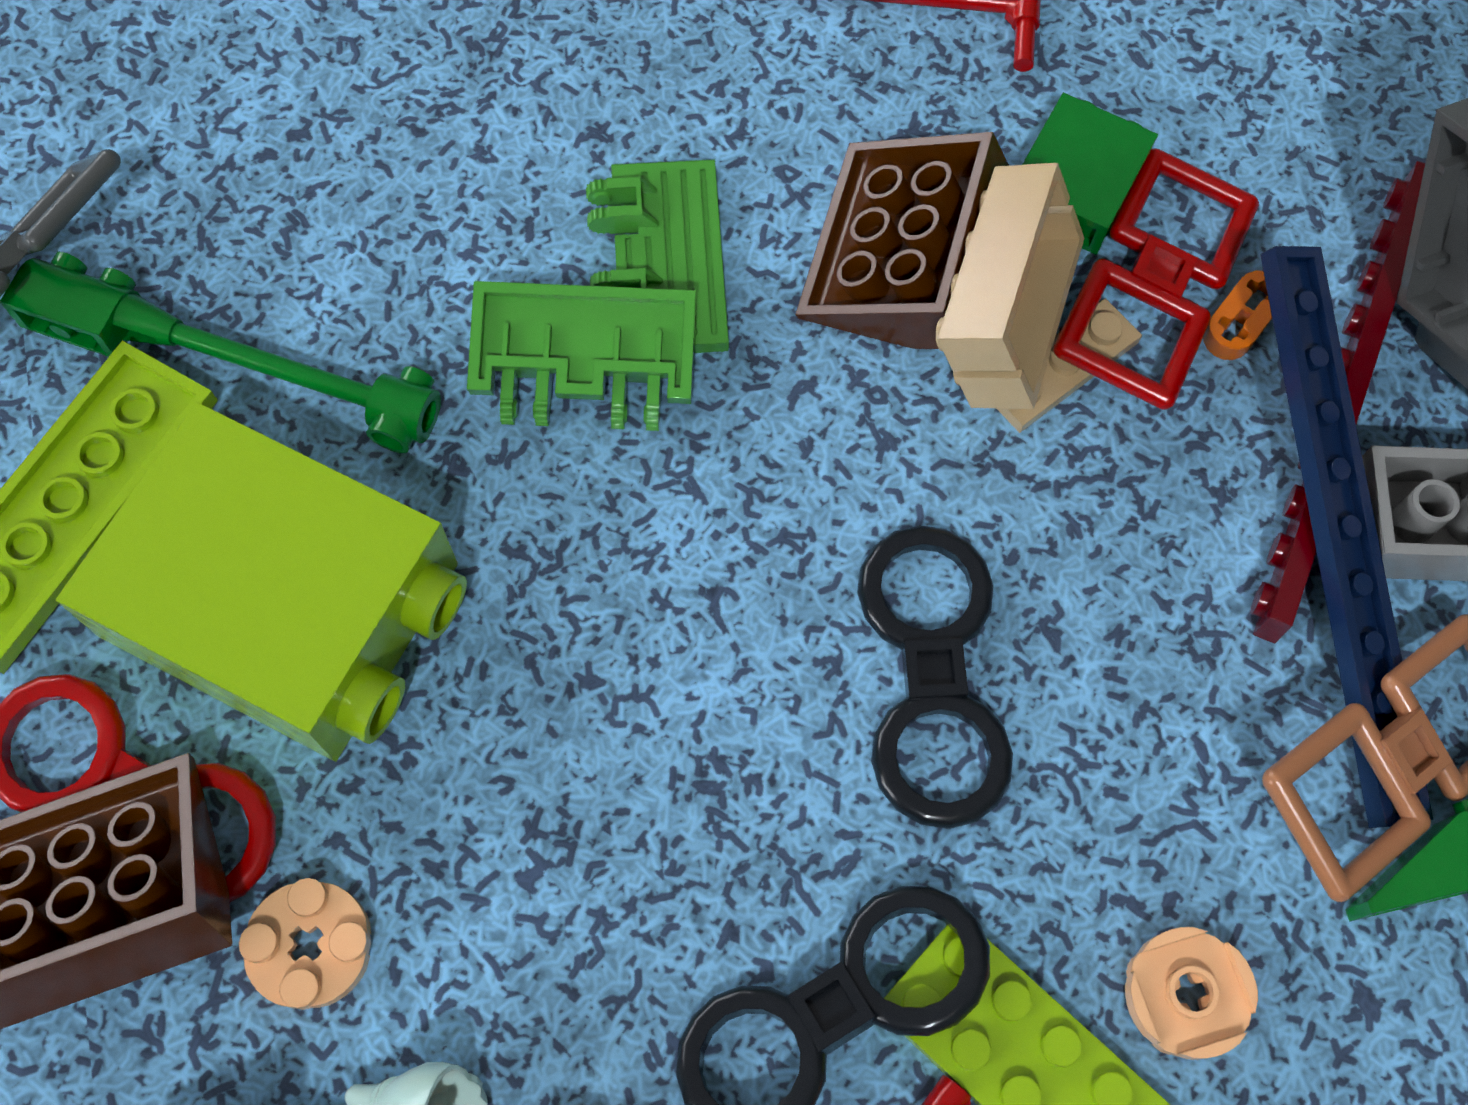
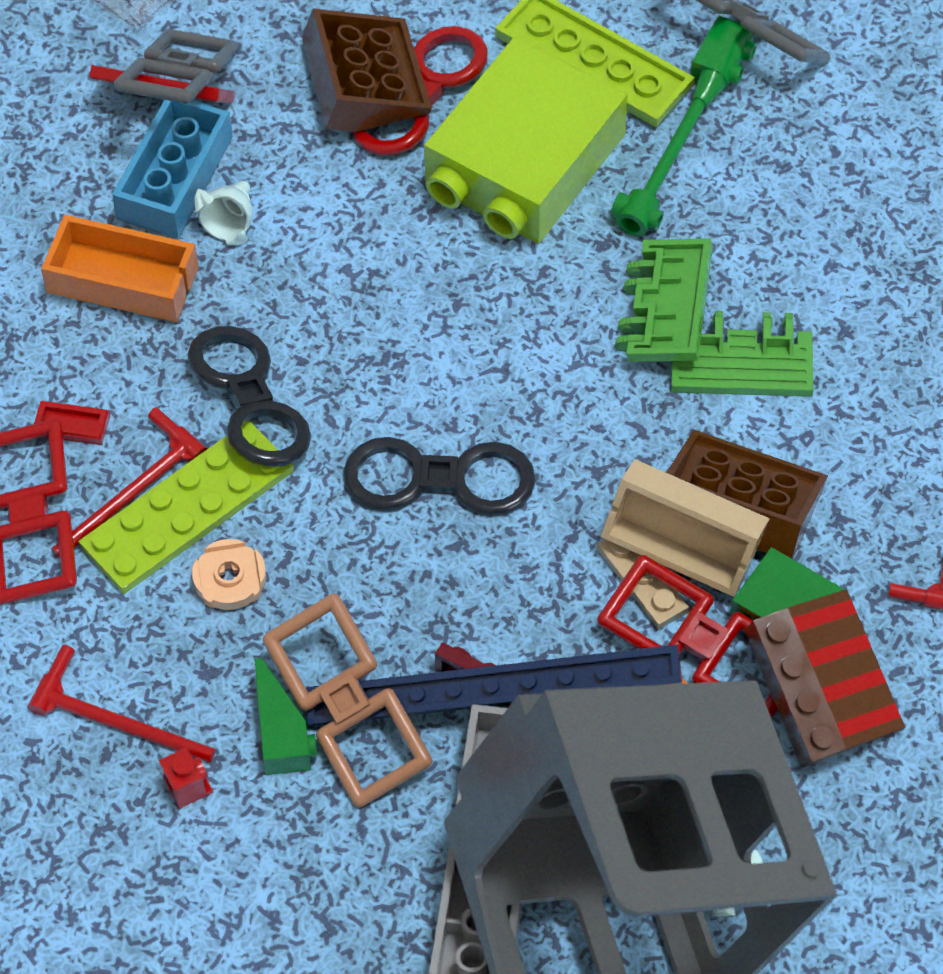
camera: 100 degrees right, 10 degrees down
(306, 981) = (326, 152): light nougat plate -> none
(1209, 118) = (823, 677): none -> reddish brown slope

